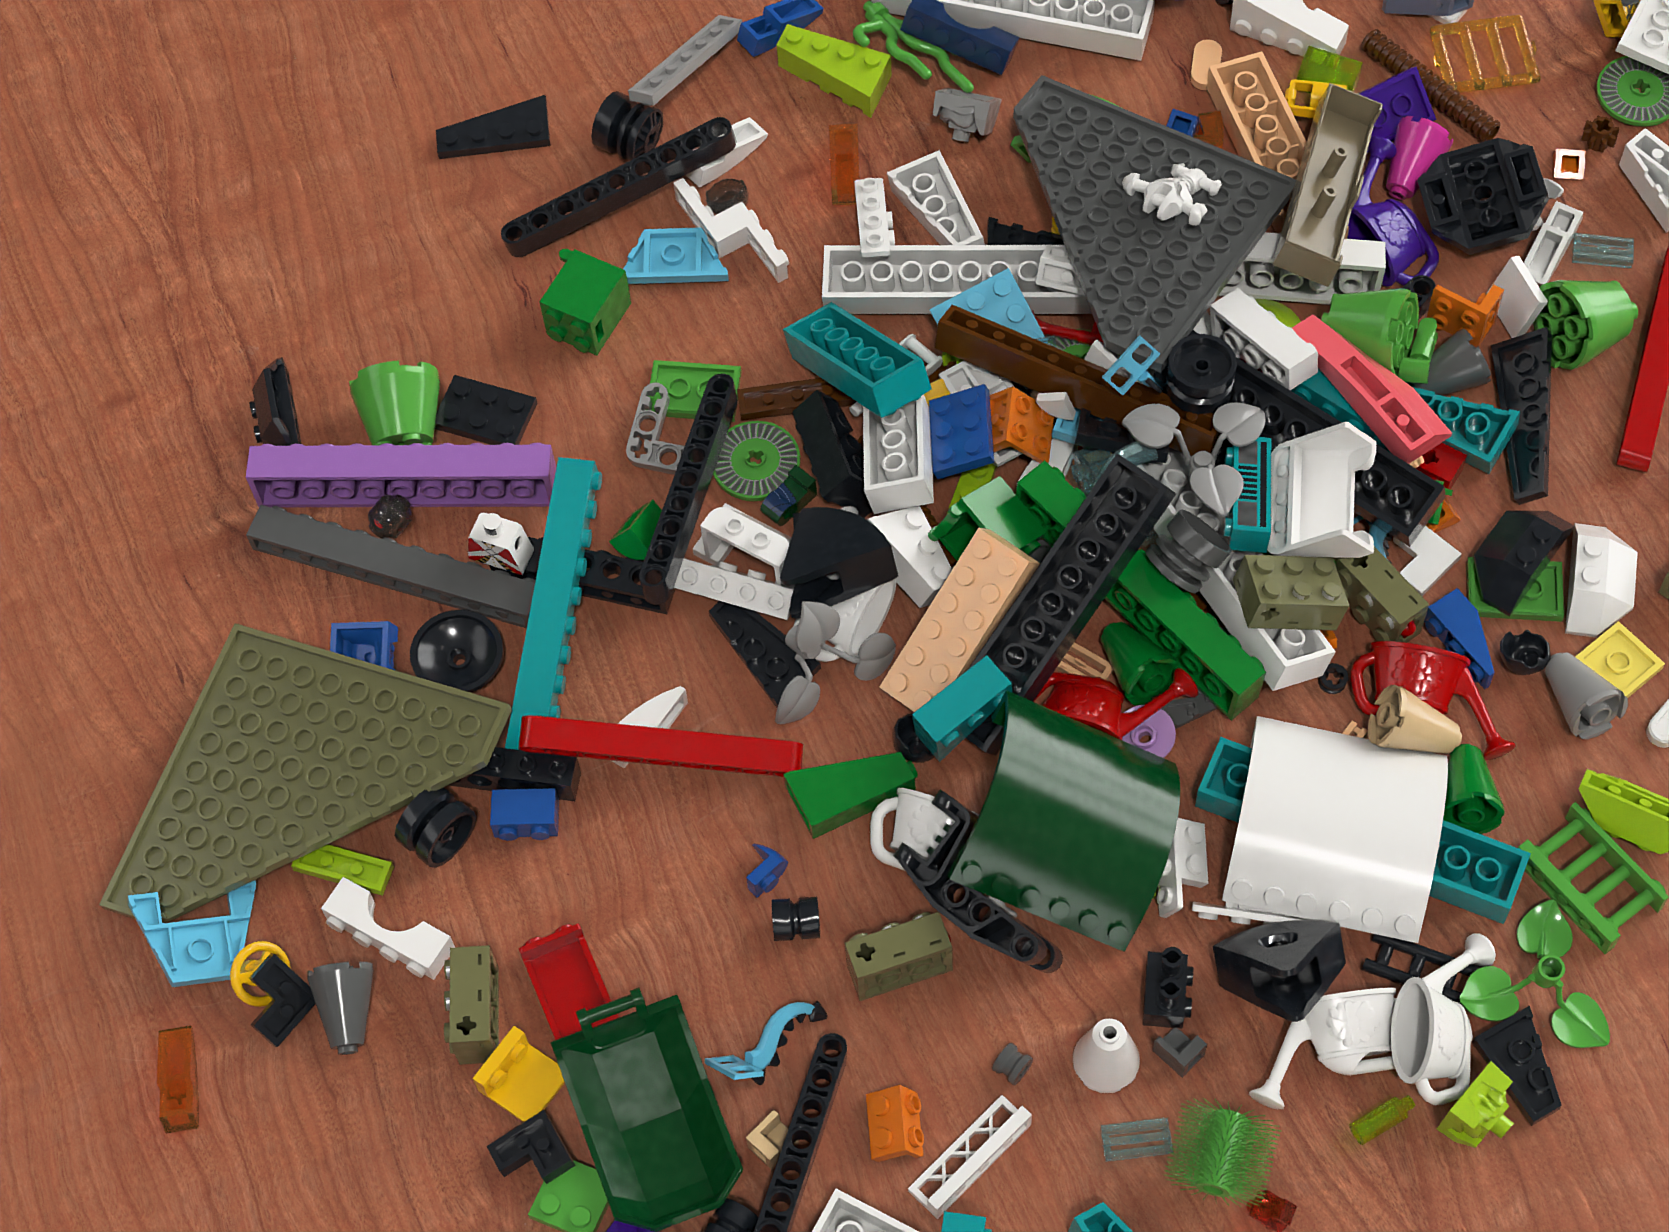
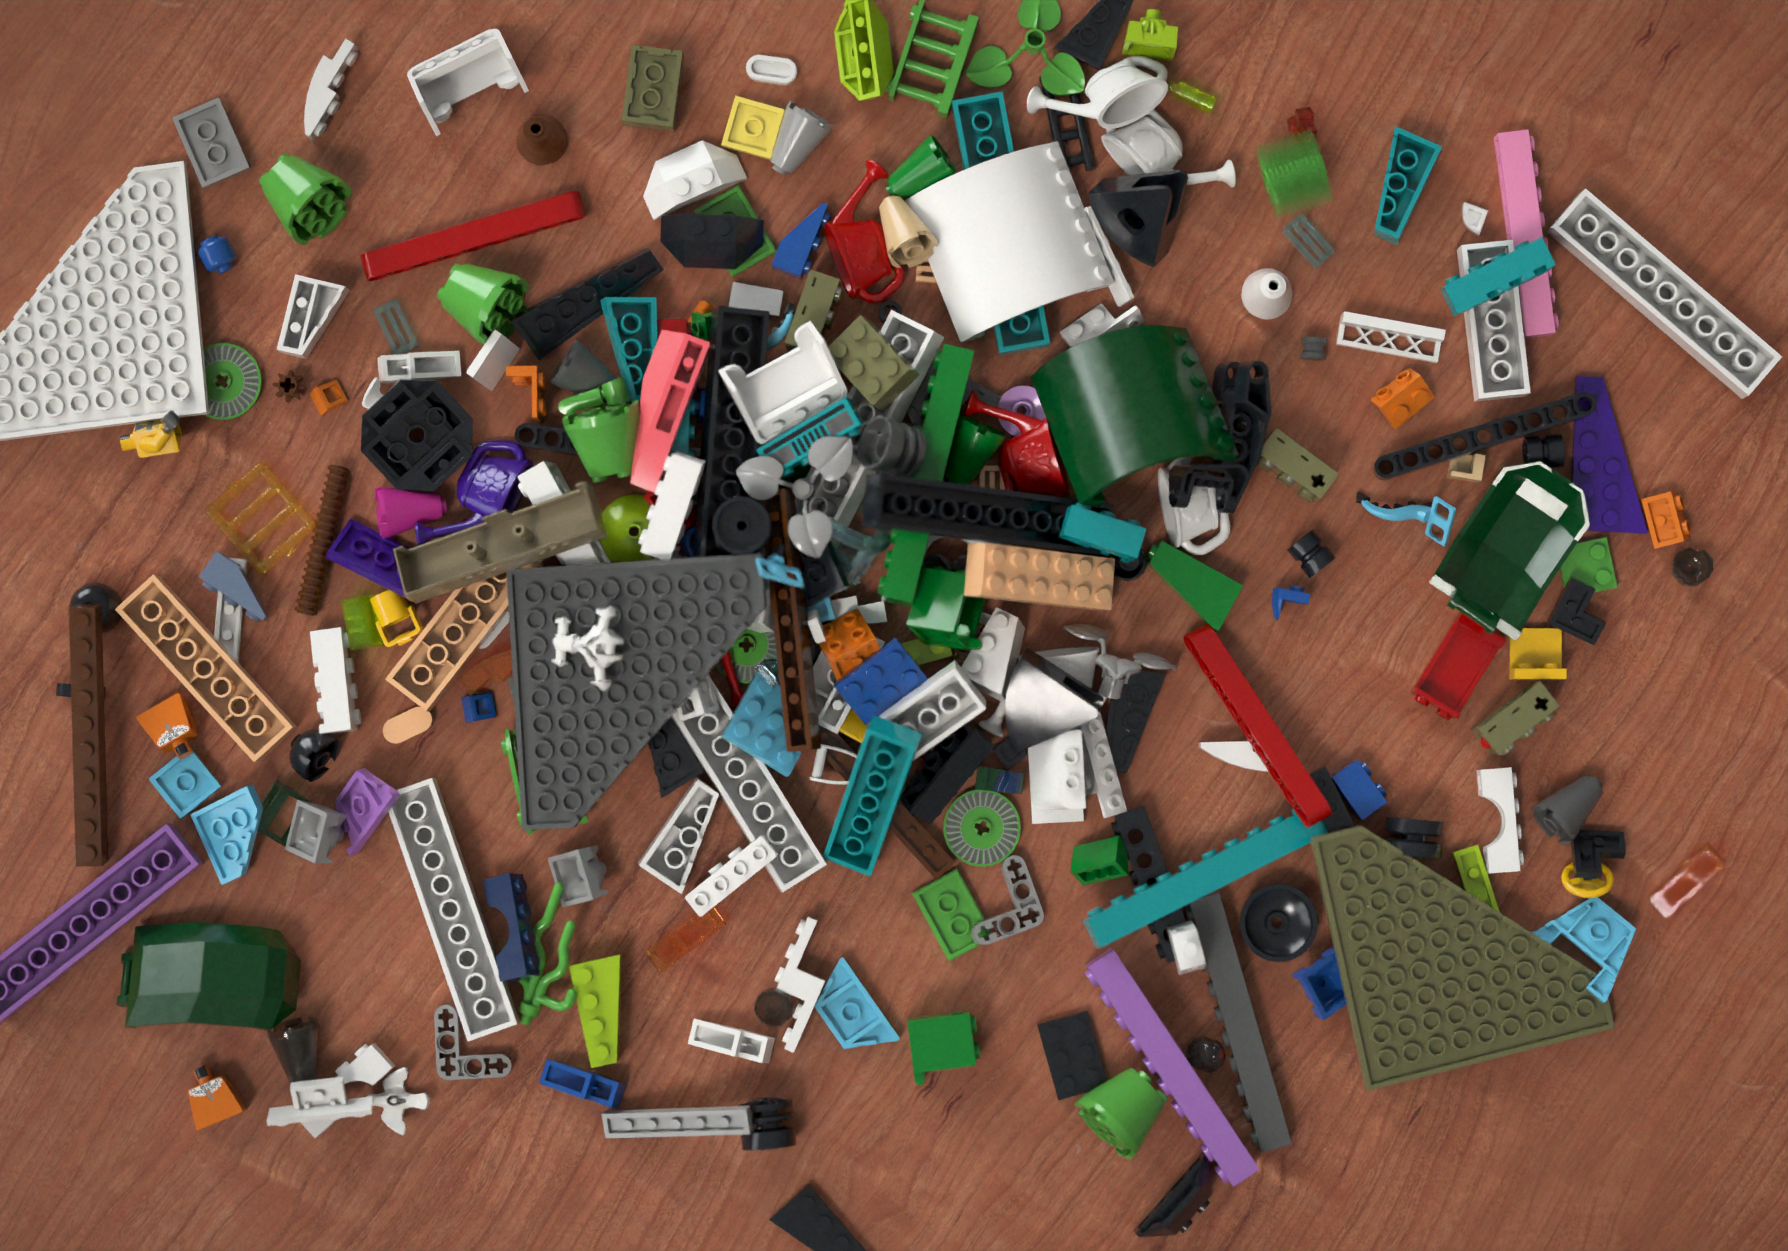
camera: 130 degrees left, 25 degrees up
(629, 177) = (838, 1093): black beam -> none
(688, 489) = (1039, 858): black beam -> none
(1166, 989) = (1196, 282): black brick -> none
(1180, 1051) = (1231, 250): dark grey panel -> none
(1524, 652) = (788, 193): black hair -> none

